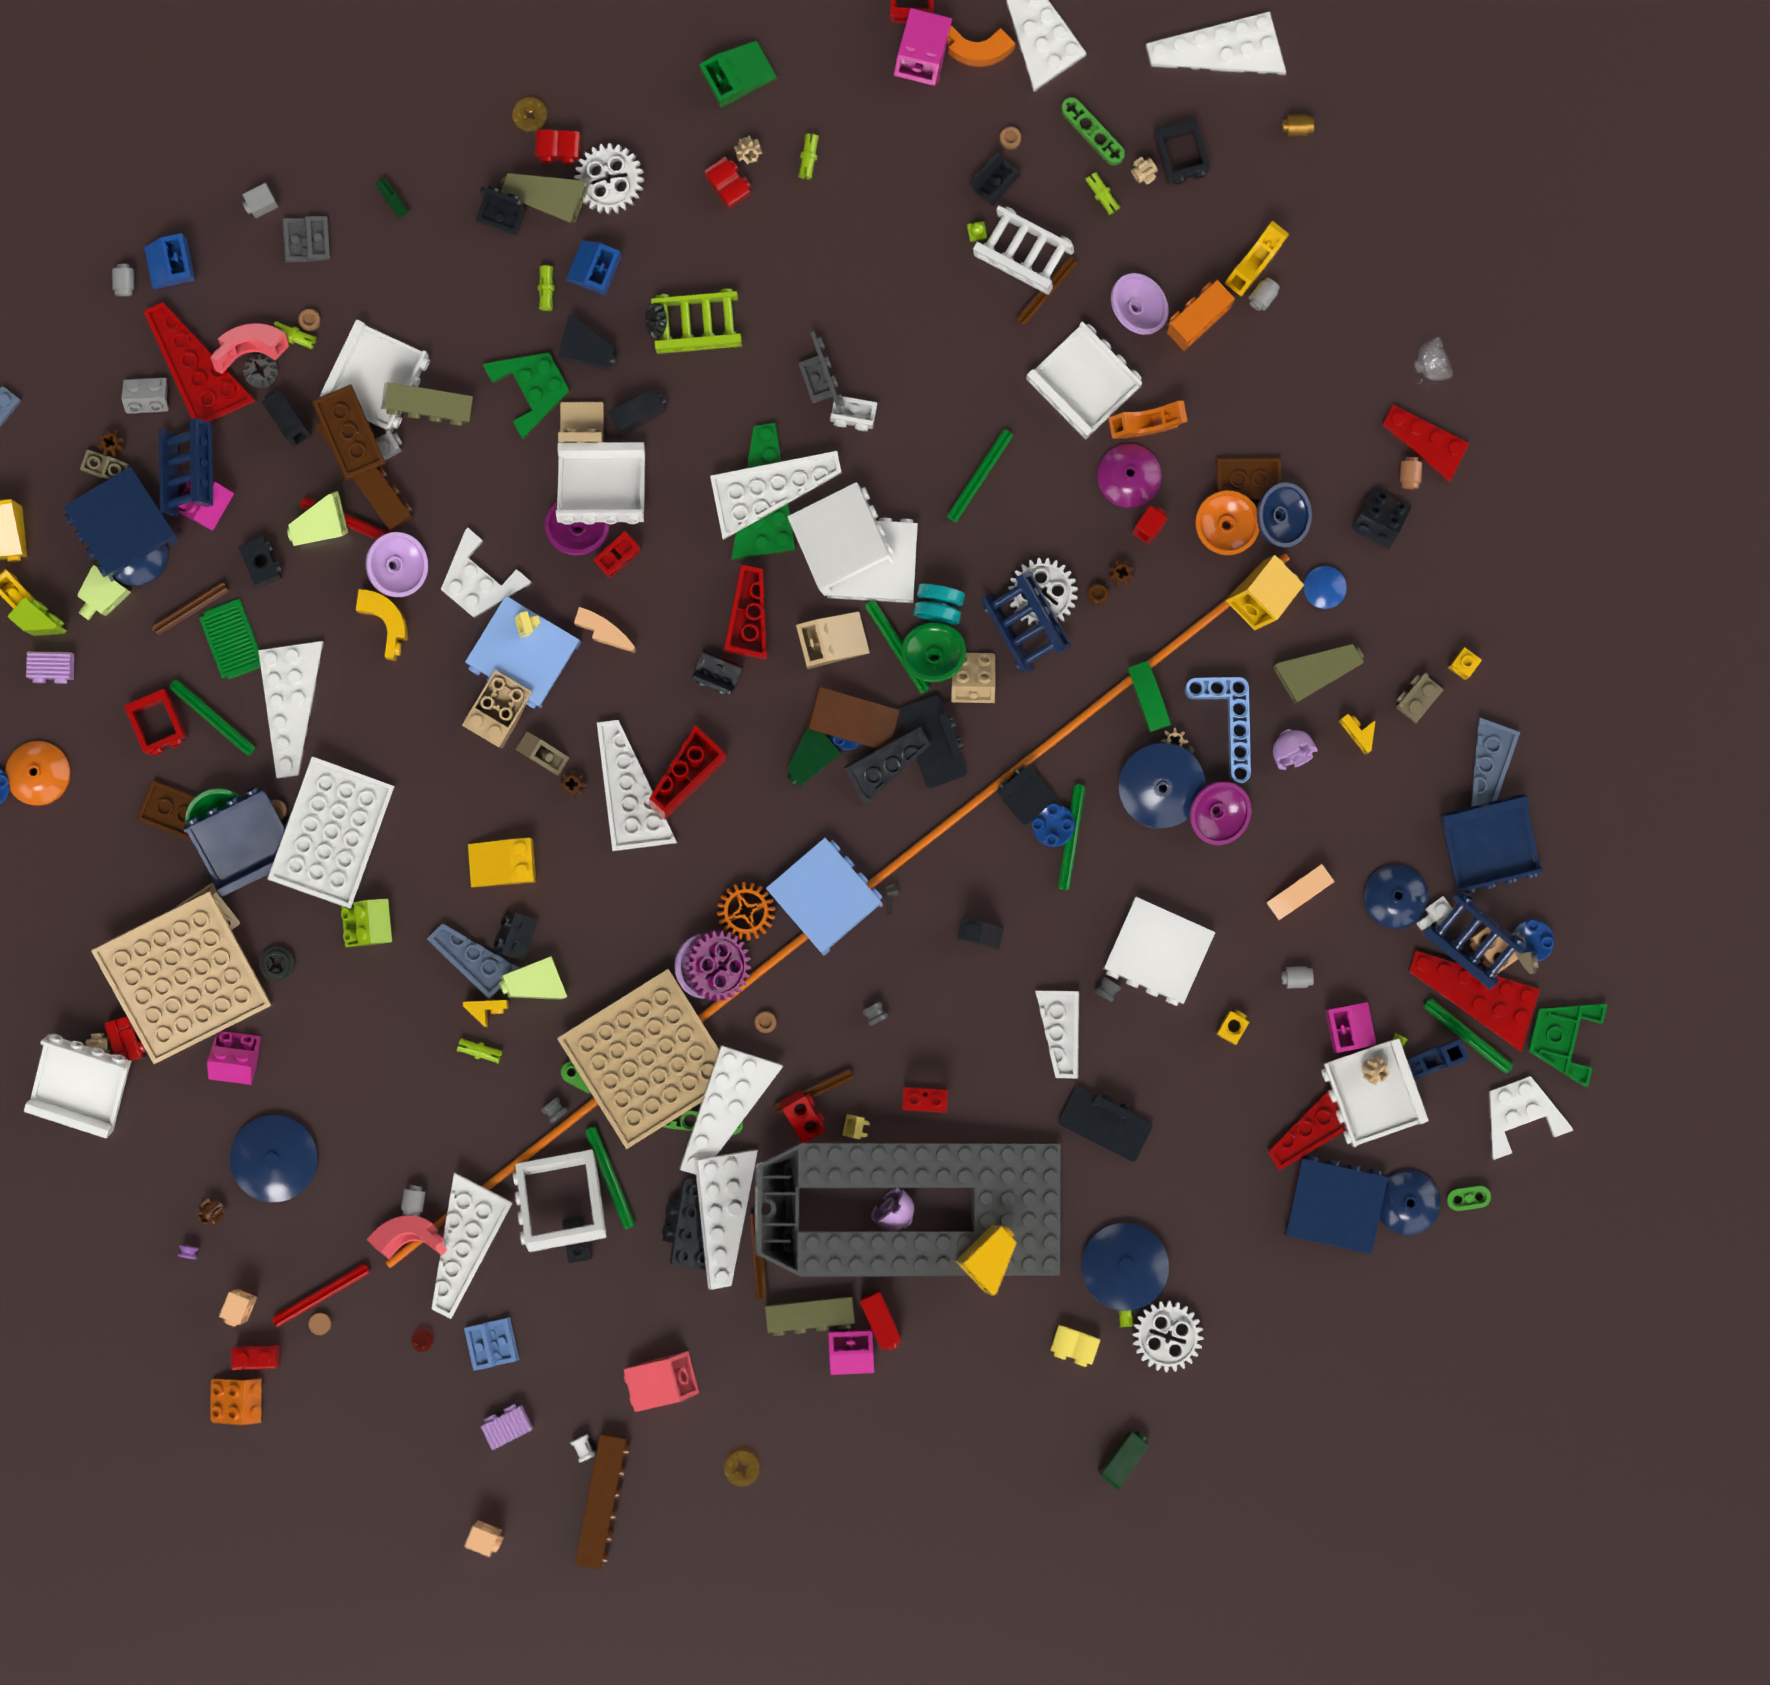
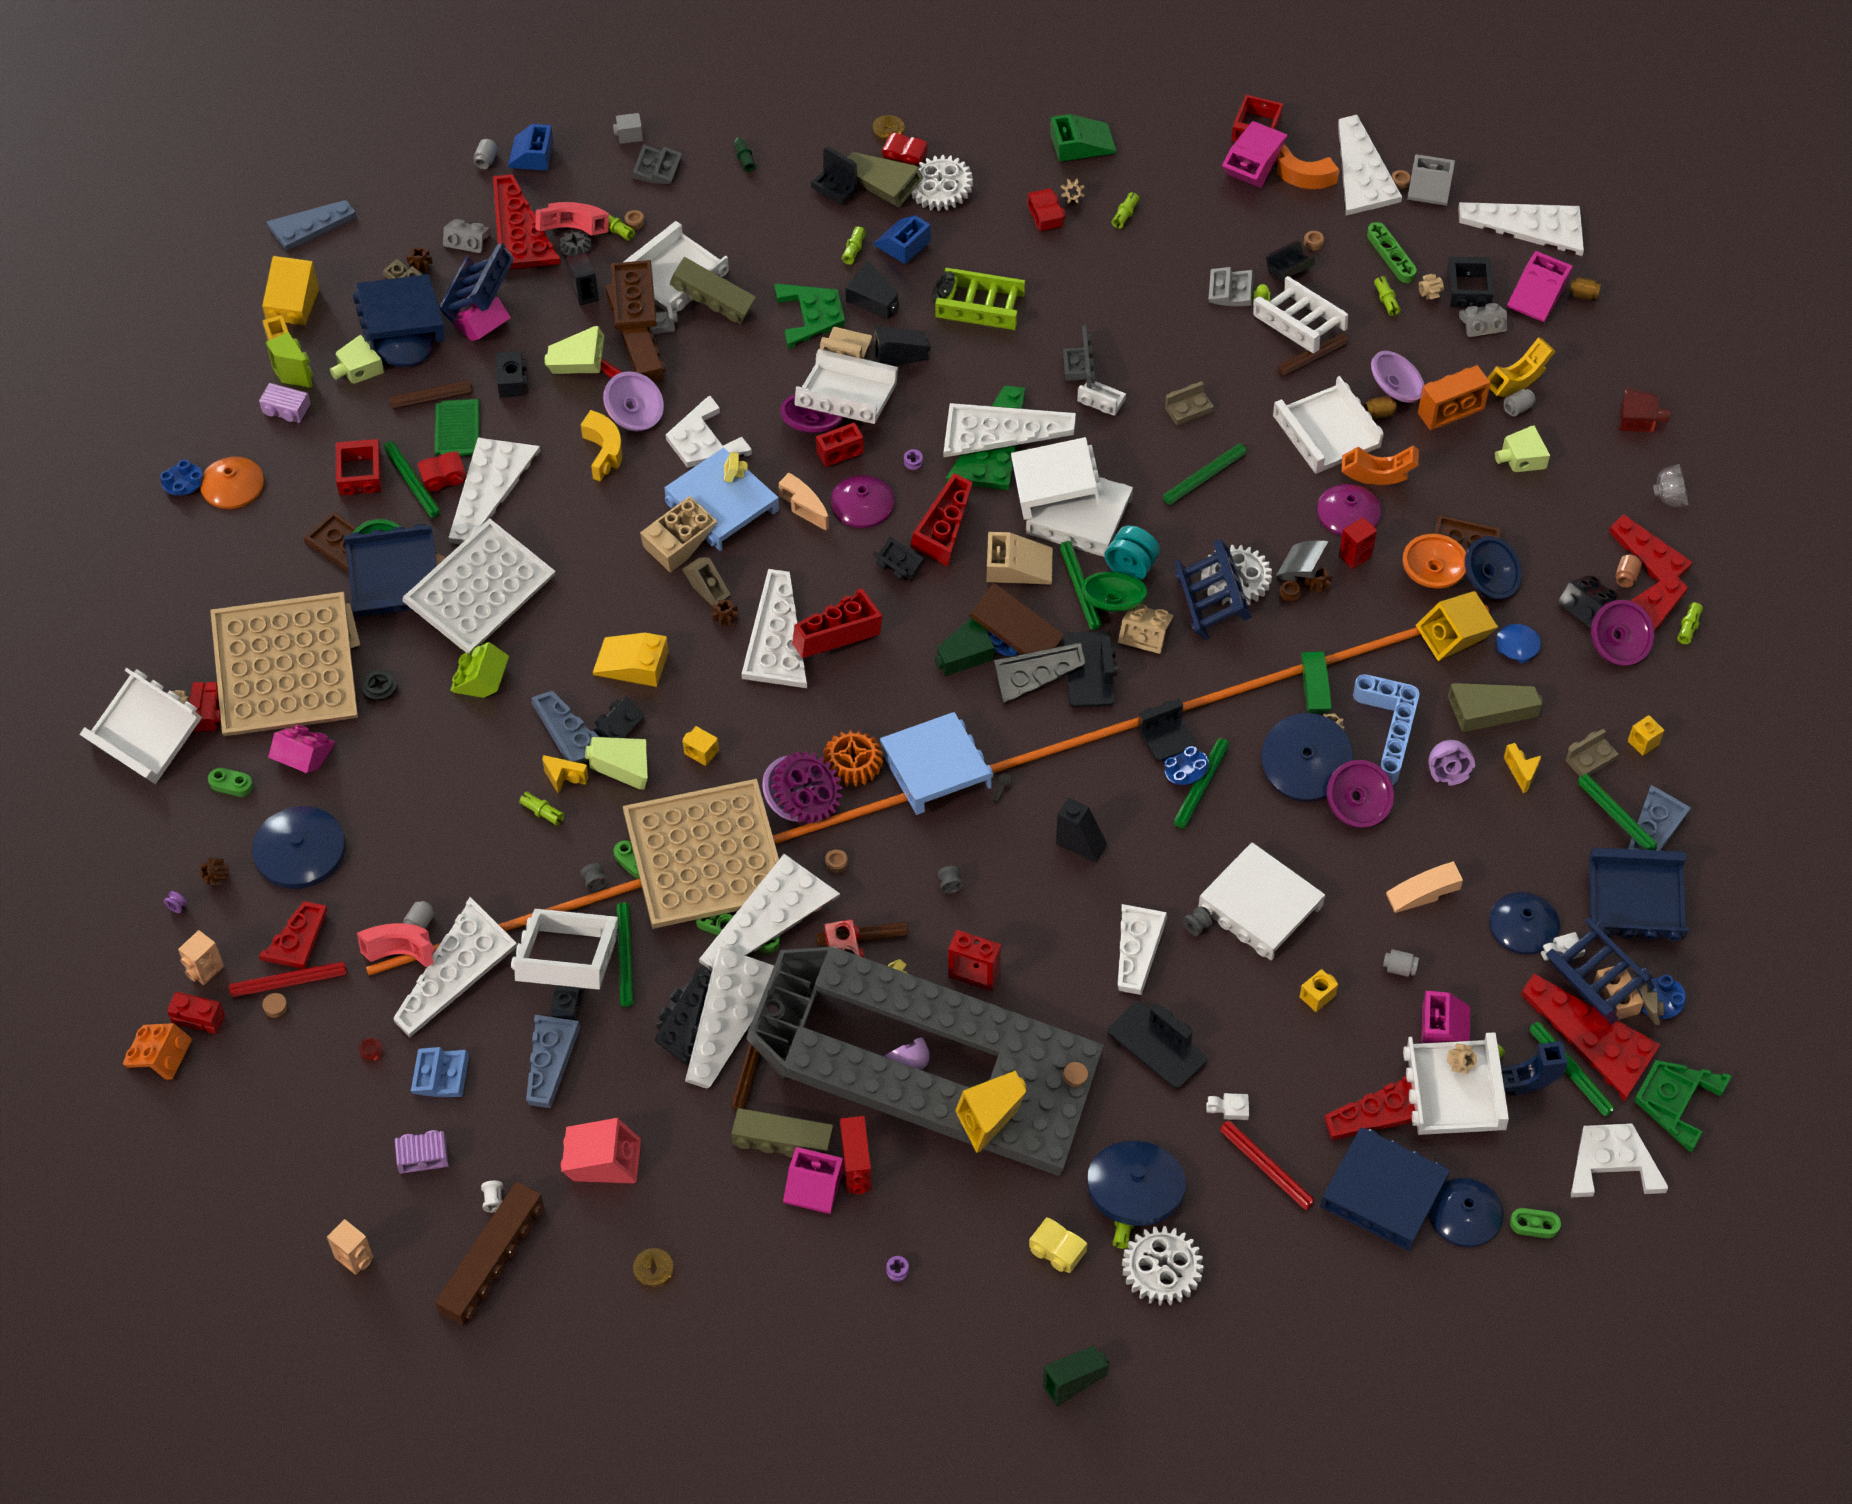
camera: 20 degrees right, 30 degrees down
(181, 1109) = (229, 782): none -> bright green plate
(240, 702) = (442, 471): none -> red brick
(312, 1252) = (298, 938): none -> red wing
(581, 1296) = (551, 1051): none -> sand blue wing
(600, 940) = (700, 745): none -> yellow brick
(661, 623) = (860, 508): none -> magenta dish
(695, 538) = (913, 453): none -> medium lavender bush
(941, 394) = (1188, 403): none -> dark tan bracket
(943, 227) = (1231, 287): none -> light grey slope
(952, 1407) = (897, 1260): none -> medium lavender bush
(1046, 1188) = (1075, 1074): none -> medium nougat tile
(1079, 26) = (1401, 179): none -> medium nougat tile
(1102, 558) = (1303, 560): none -> dark grey slope
(1111, 26) = (1431, 179): none -> light grey slope
(1129, 343) = (1380, 407): none -> pearl gold brick
(1186, 1163) = (1232, 1106): none -> white plate
(1205, 195) = (1484, 319): none -> light grey bracket
(1229, 1211) = (1266, 1164): none -> red axle
(1253, 139) = (1540, 286): none -> dark pink slope
(1281, 356) = (1524, 451): none -> yellowish green torso
(1385, 270) = (1641, 411): none -> clear red torso
(1429, 559) = (1633, 630): none -> magenta dish
(1443, 506) = (1661, 598): none -> red wing
(1455, 759) = (1617, 813): none -> green axle
(1480, 516) = (1690, 623): none -> lime pin

